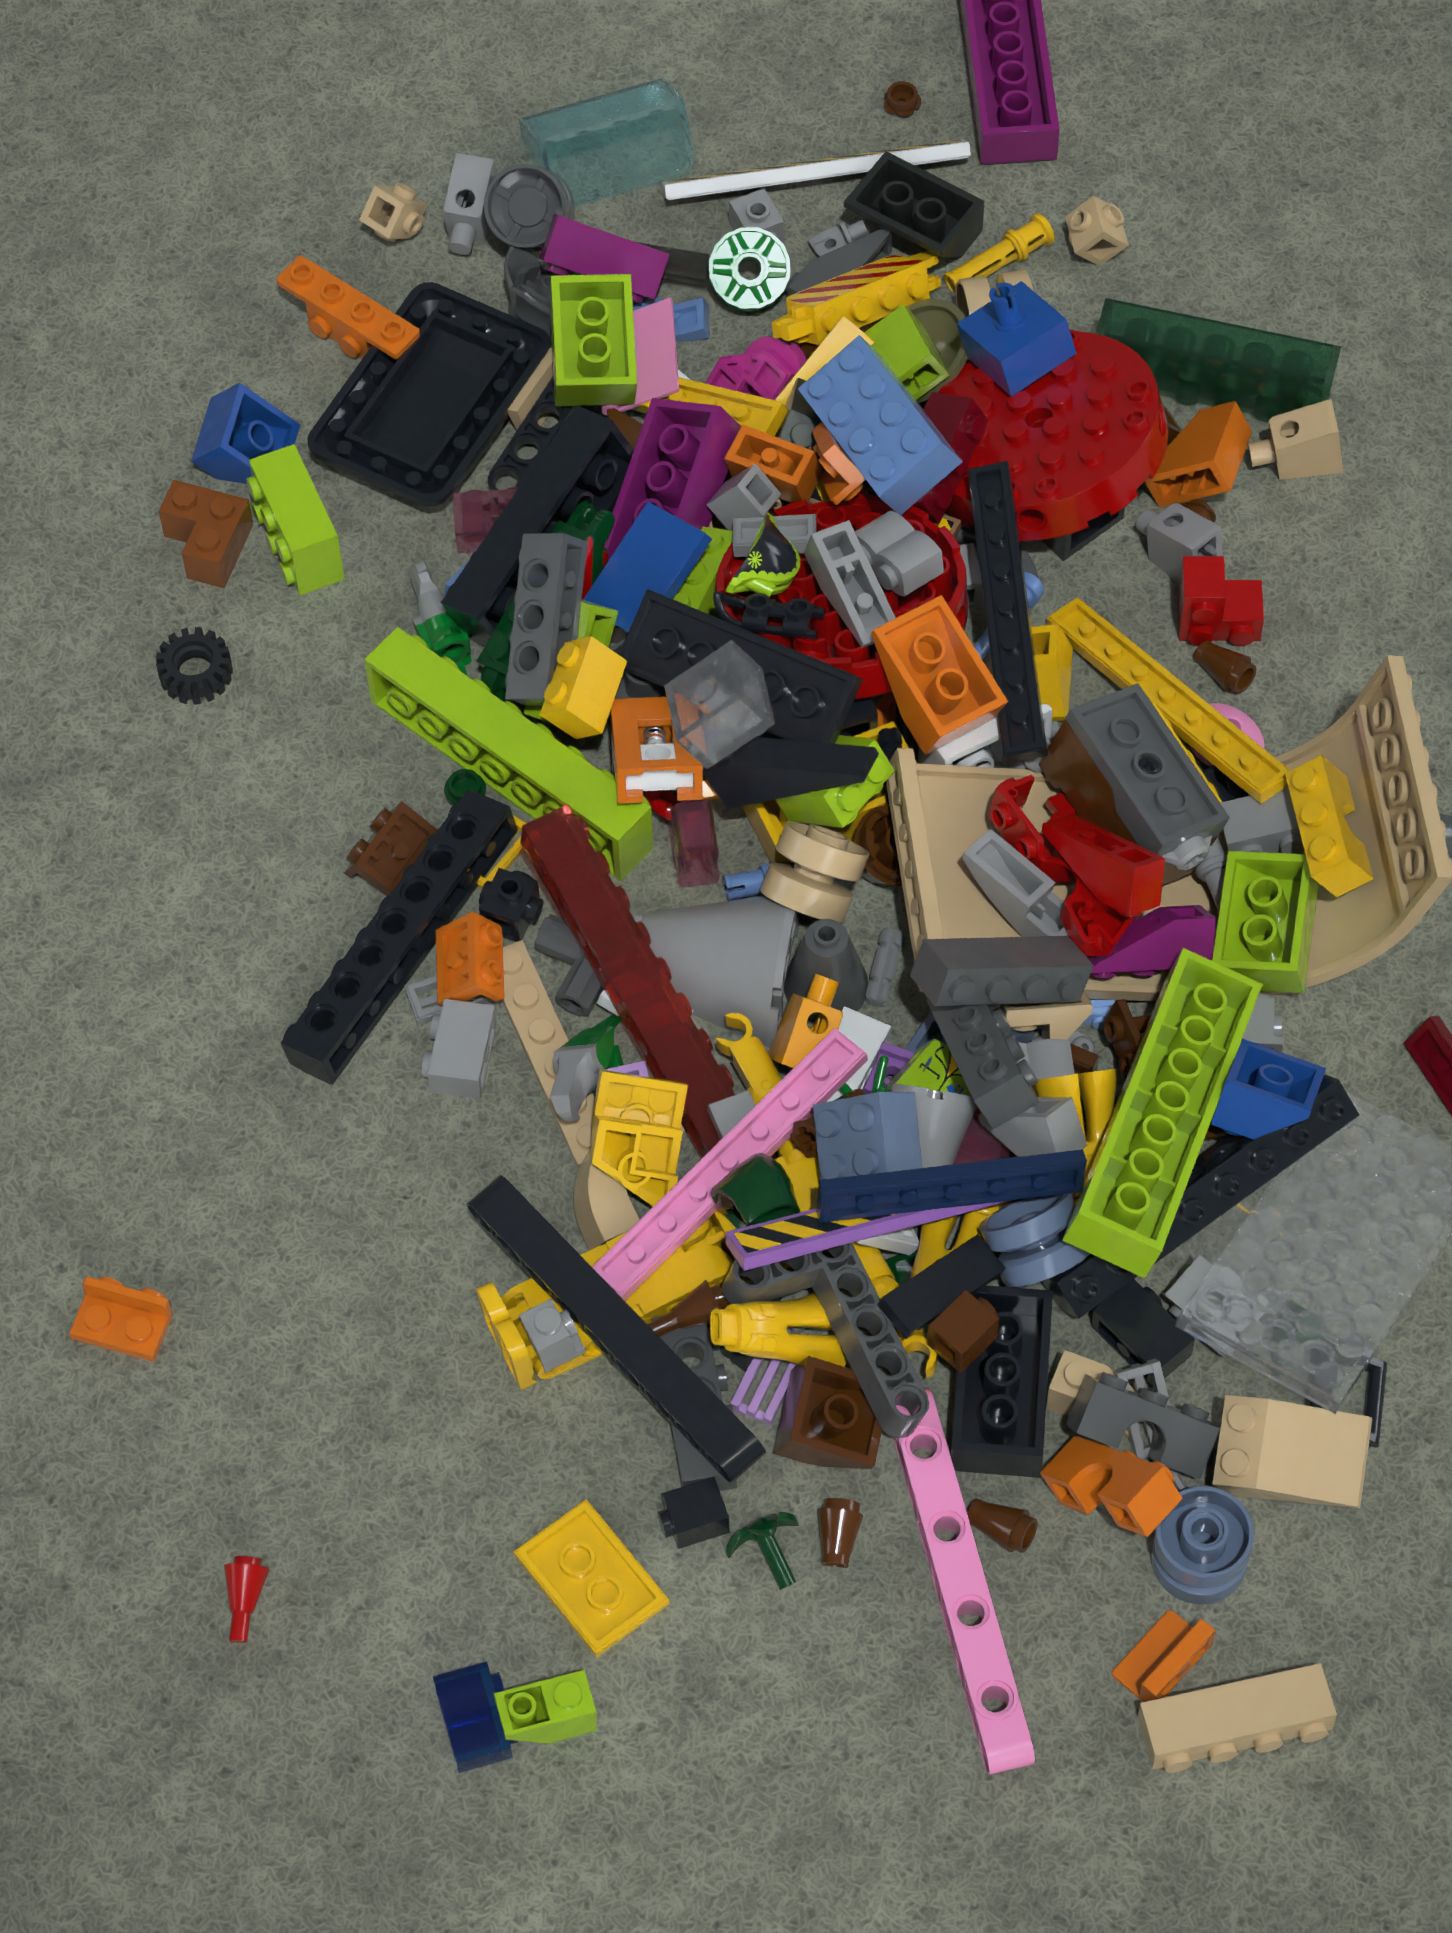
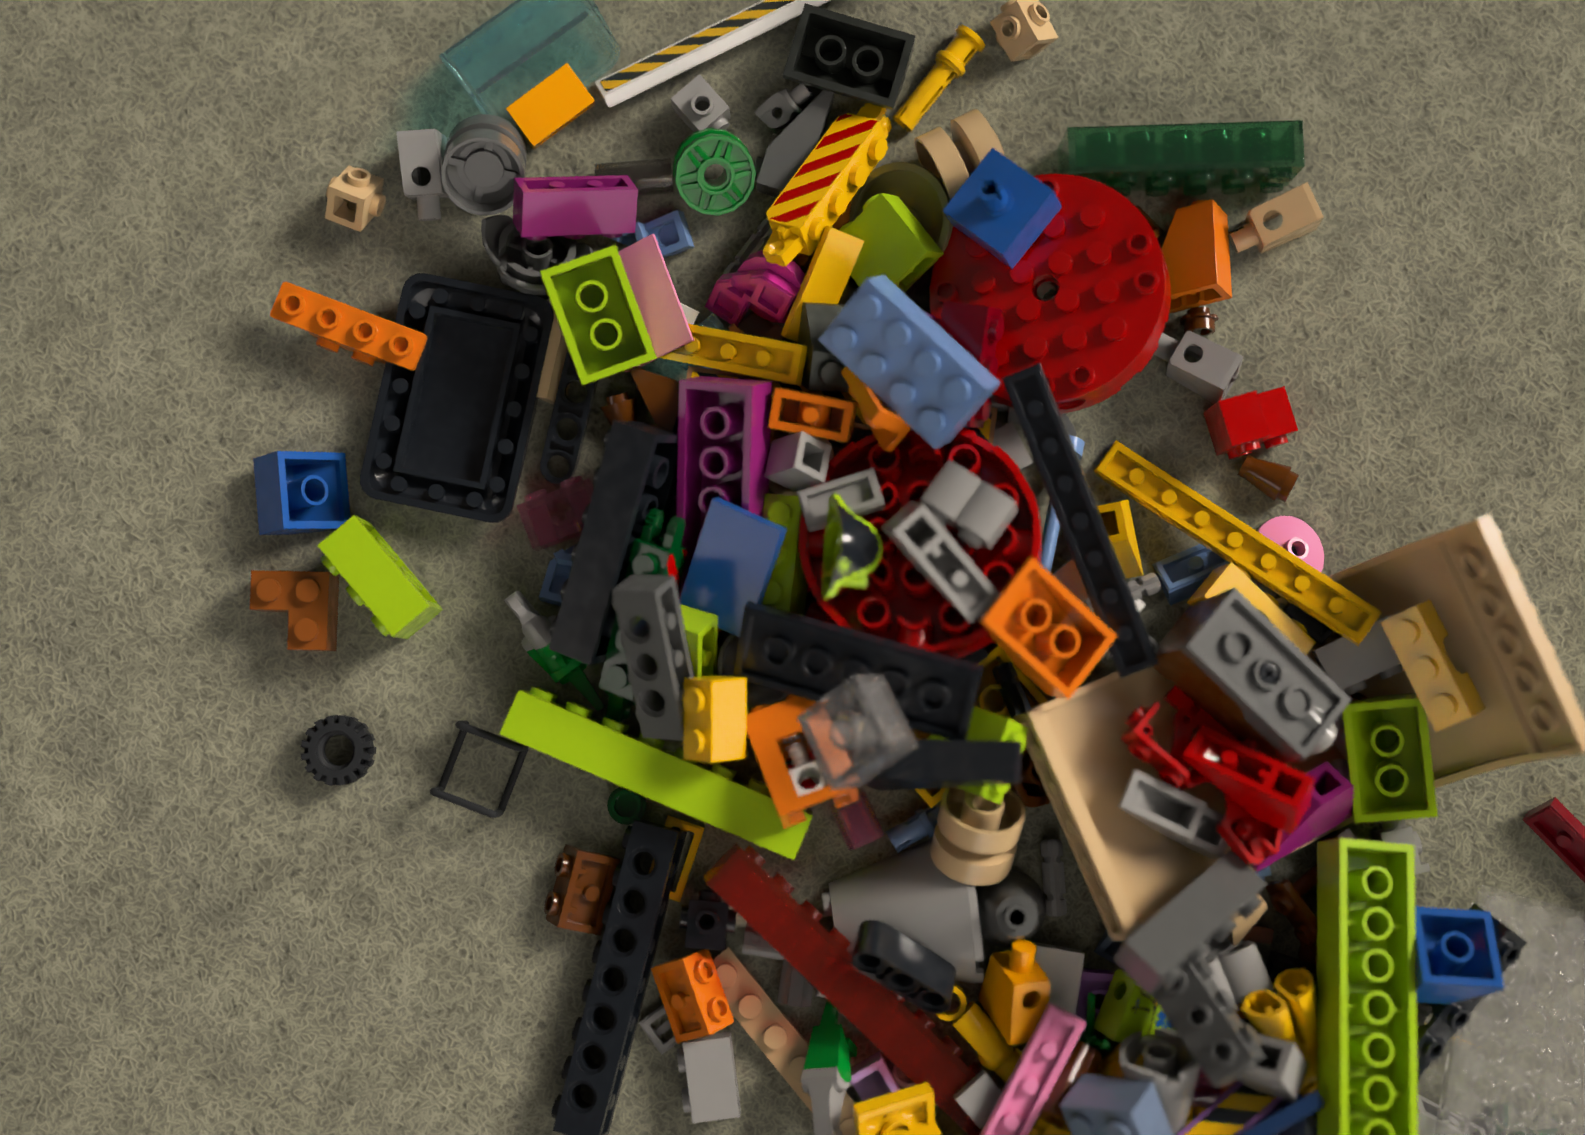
camera: 15 degrees left, 25 degrees up
(294, 719) = (464, 728): none -> black piece
(611, 185) = (550, 106): none -> light orange panel
(717, 976) = (904, 966): none -> black beam
(759, 608) = (859, 606): black piece -> none

